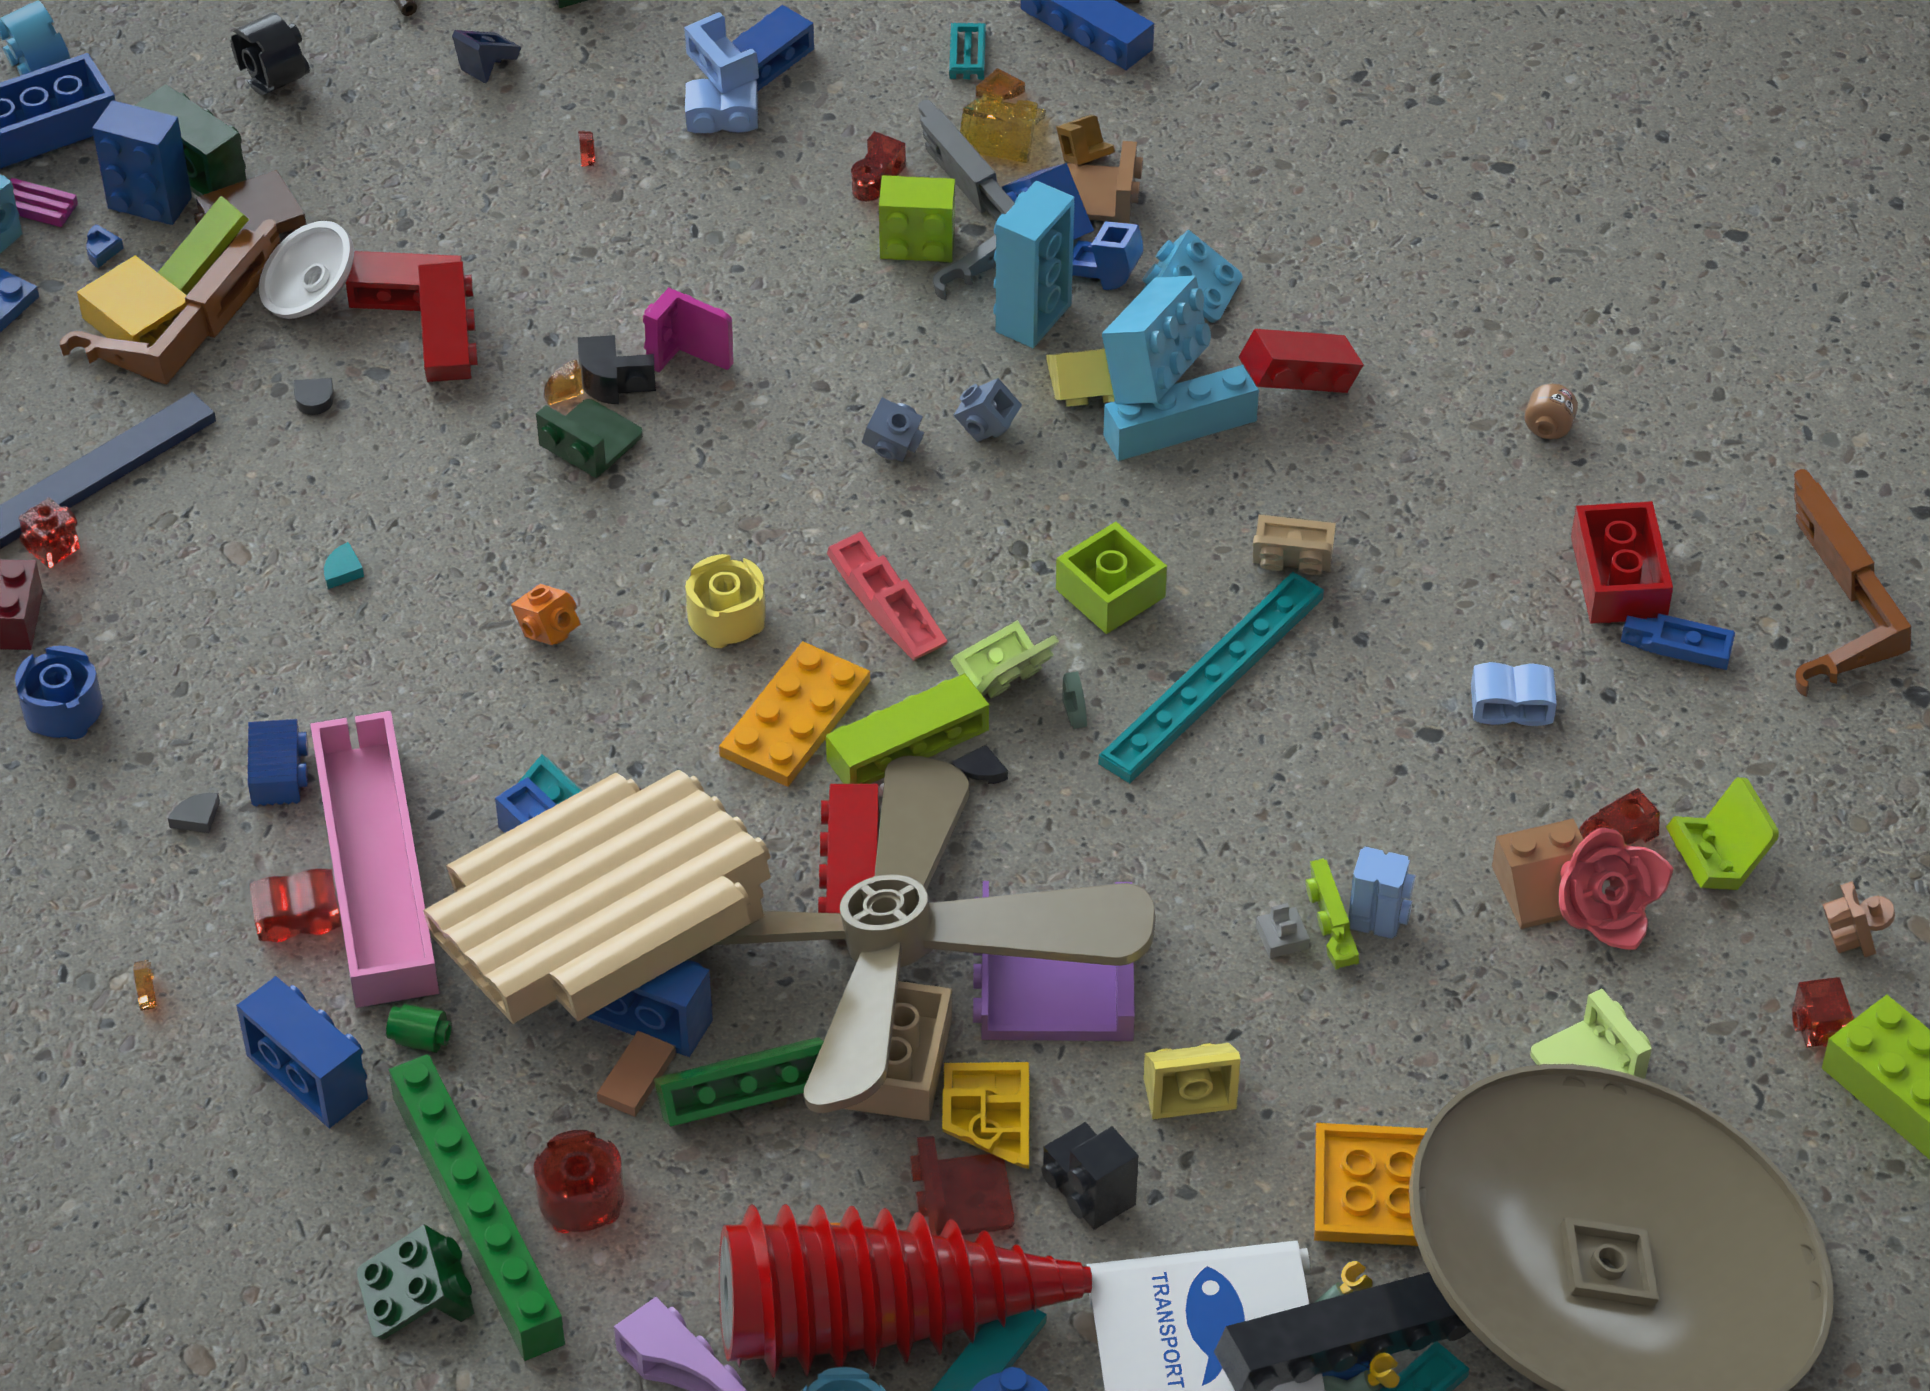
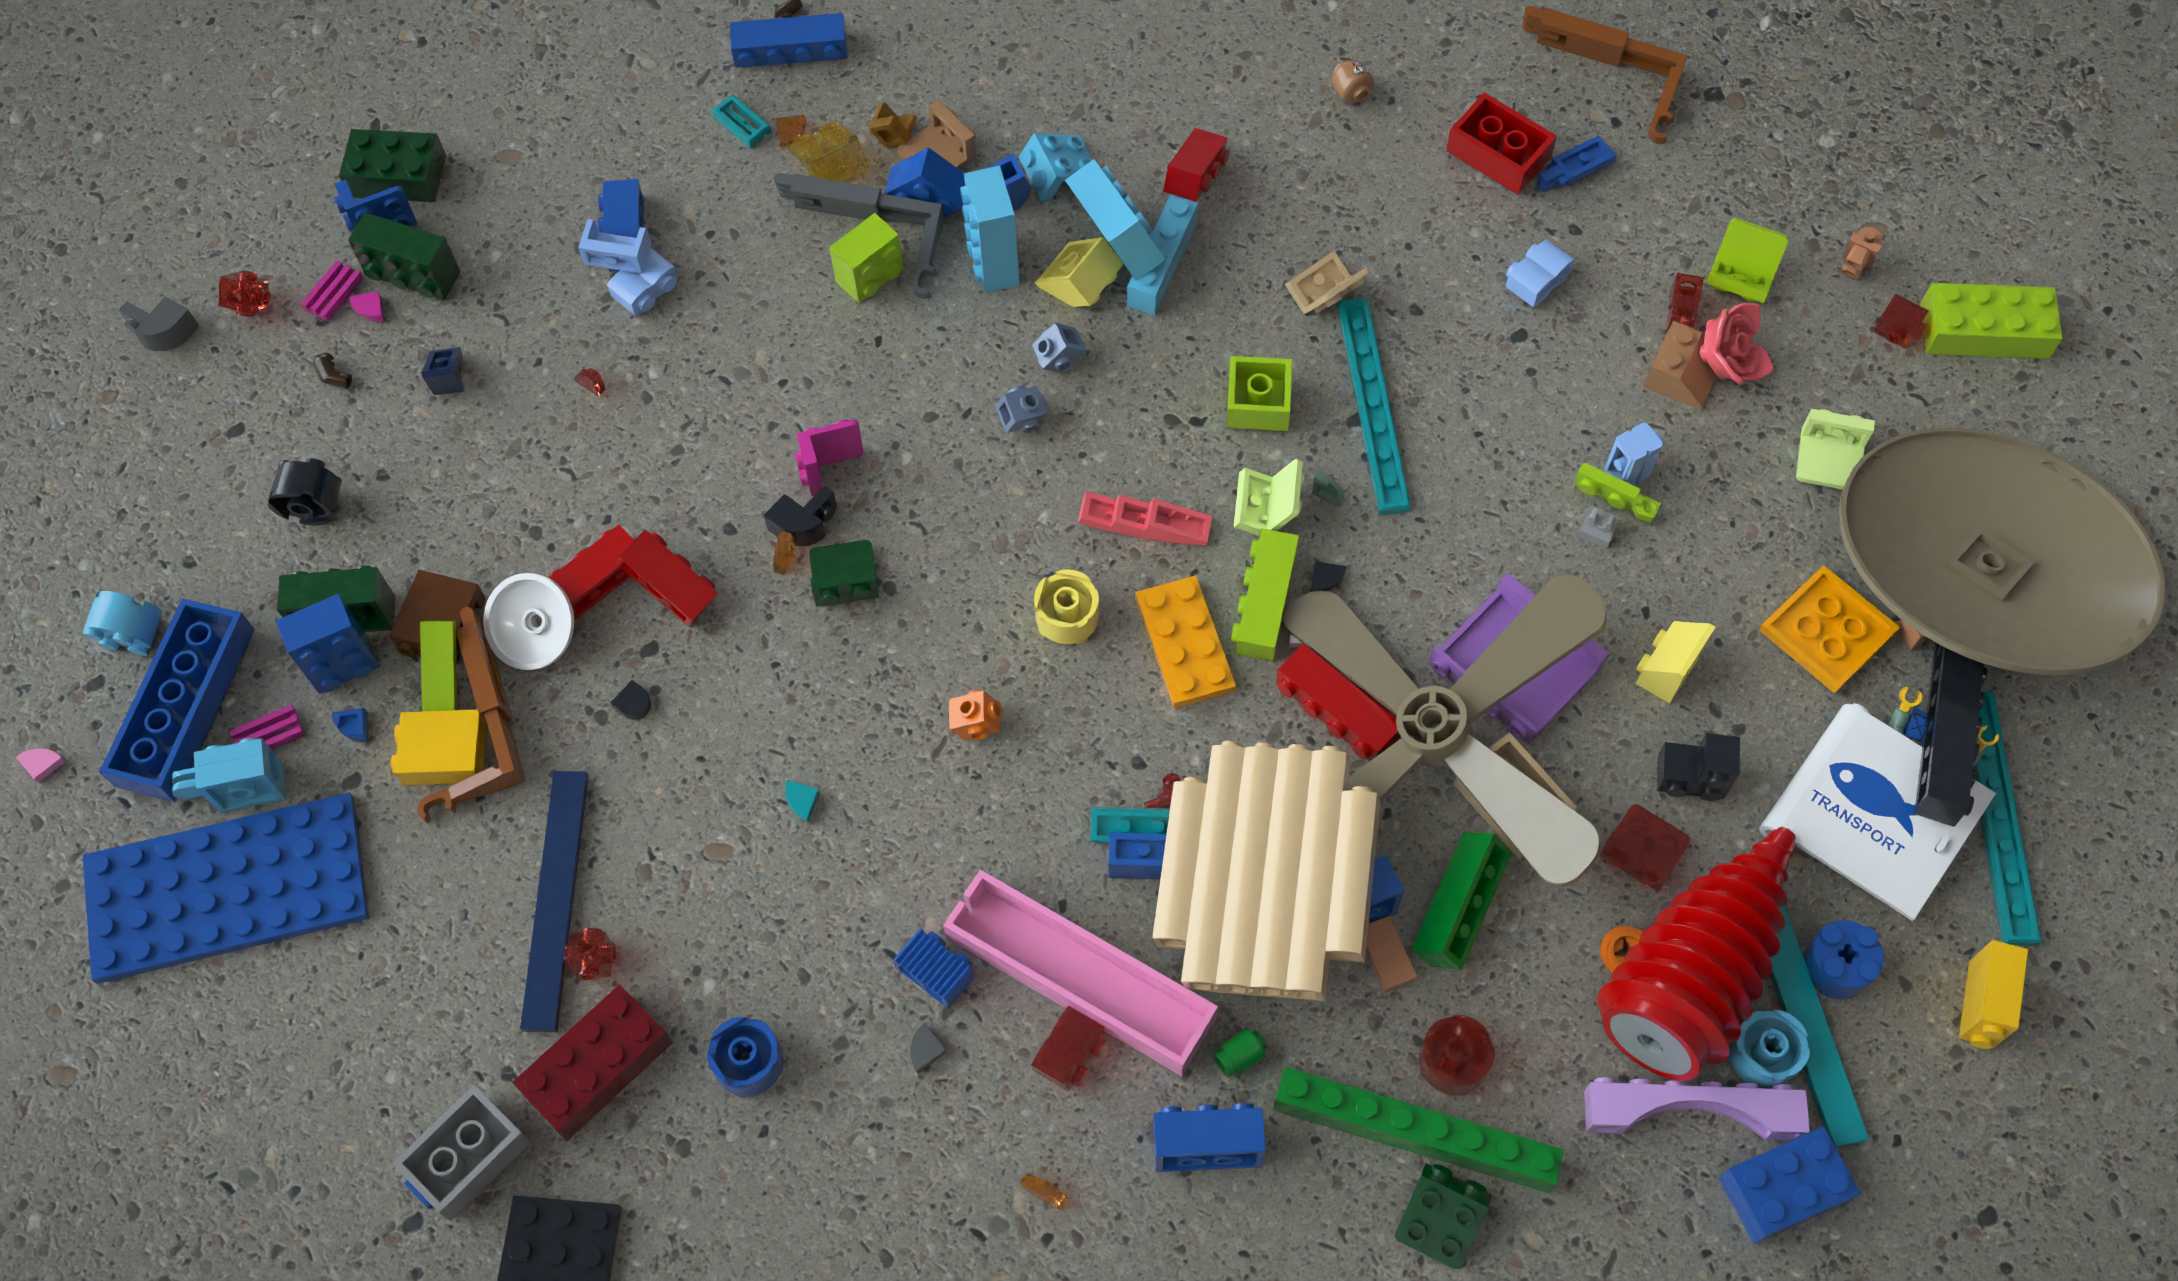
camera: 45 degrees left, 15 degrees up
(884, 158) = (792, 250): clear red leg -> none
(989, 1107) = (1598, 783): yellow slope -> none

